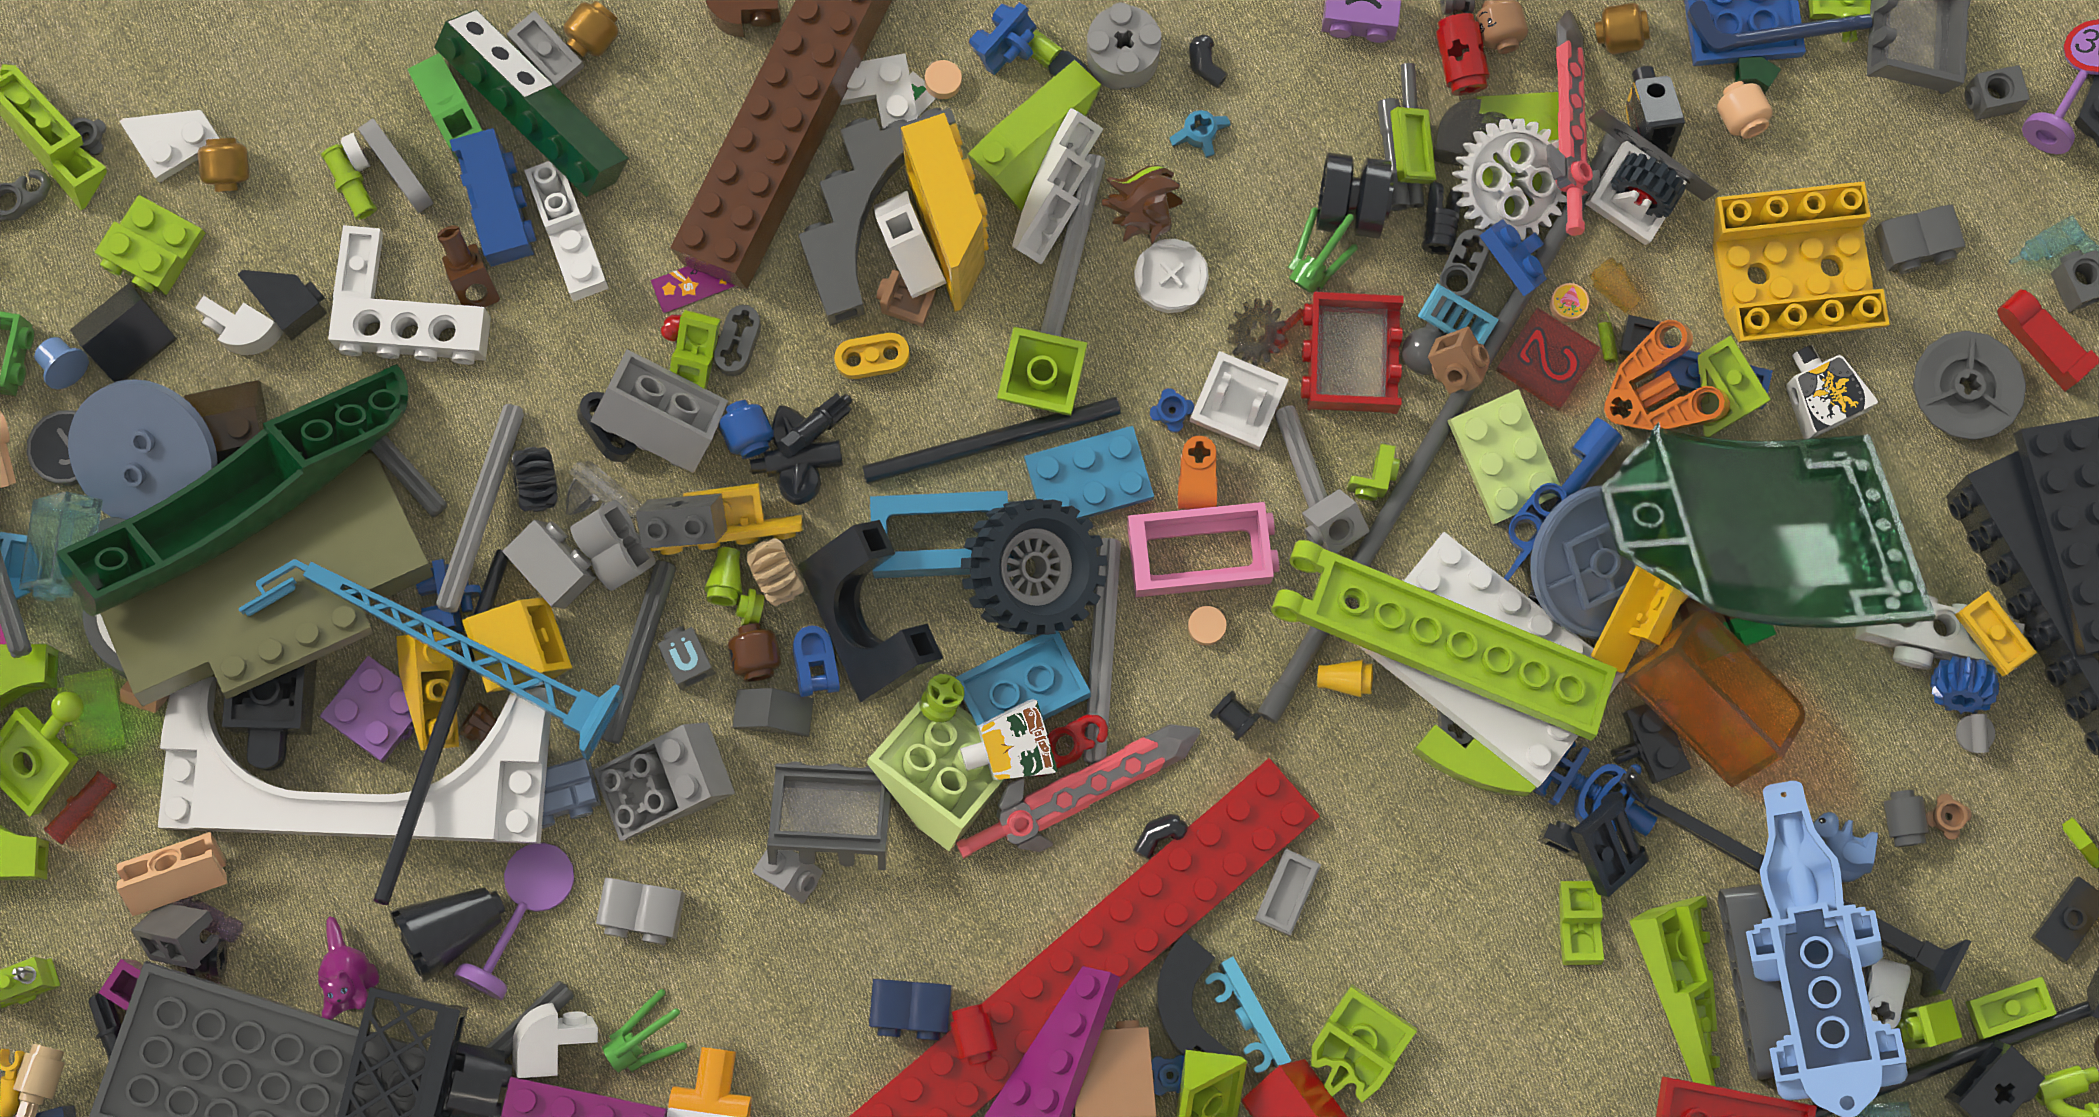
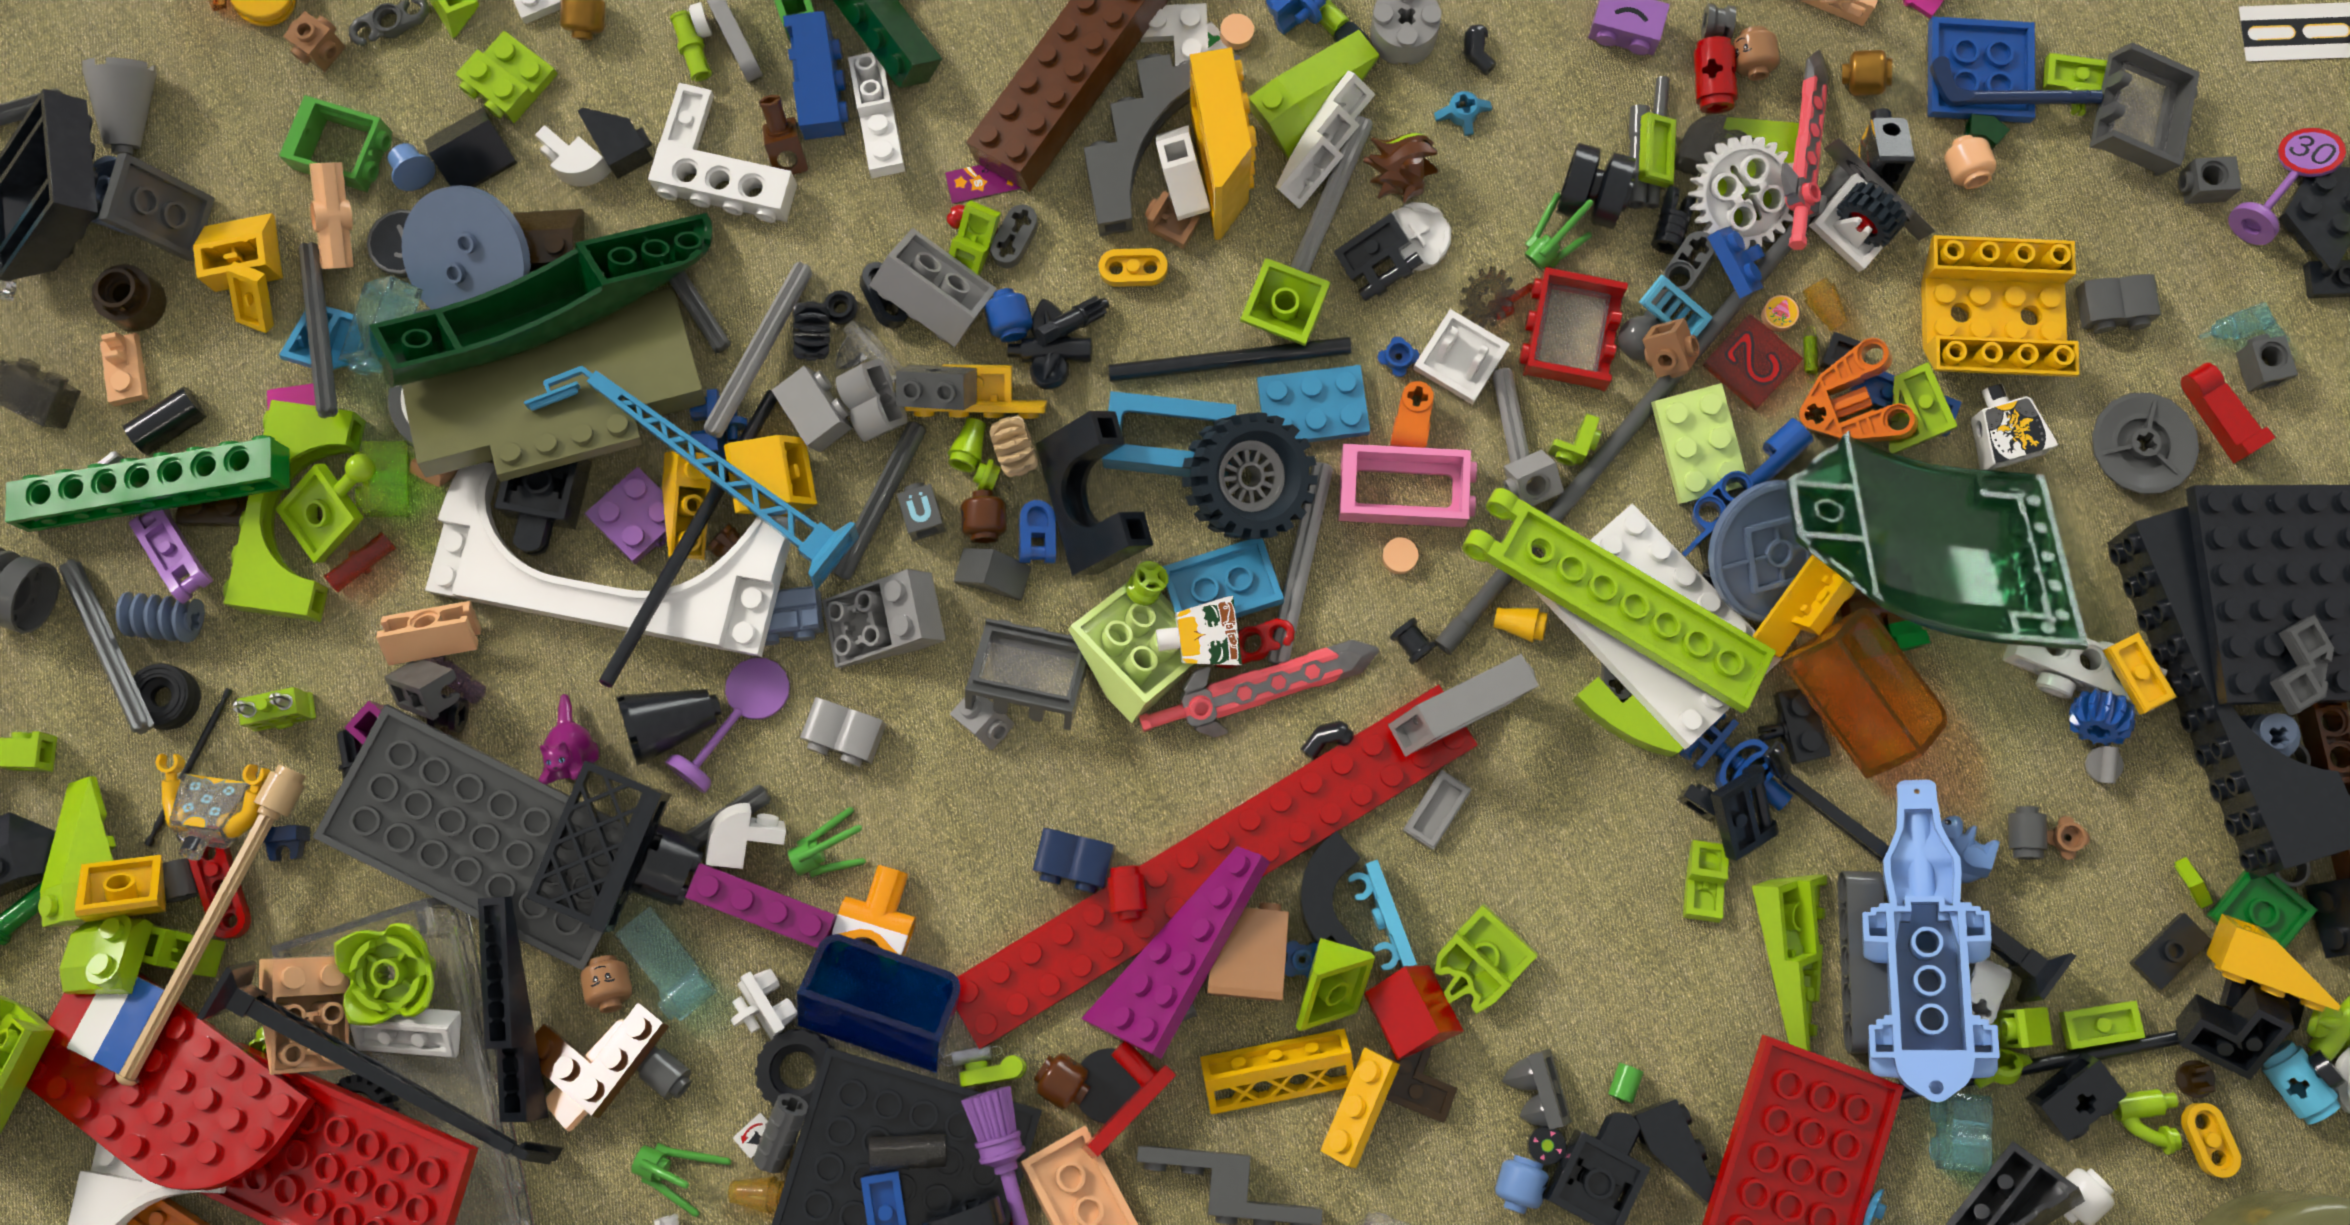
camera: 15 degrees right, 0 degrees up
(562, 435) = (841, 297): none -> black plate
(1126, 297) = (1372, 248): none -> black plate
(1298, 778) = (1463, 704): none -> light grey piece
(1920, 1068) = (2009, 1068): none -> lime piece

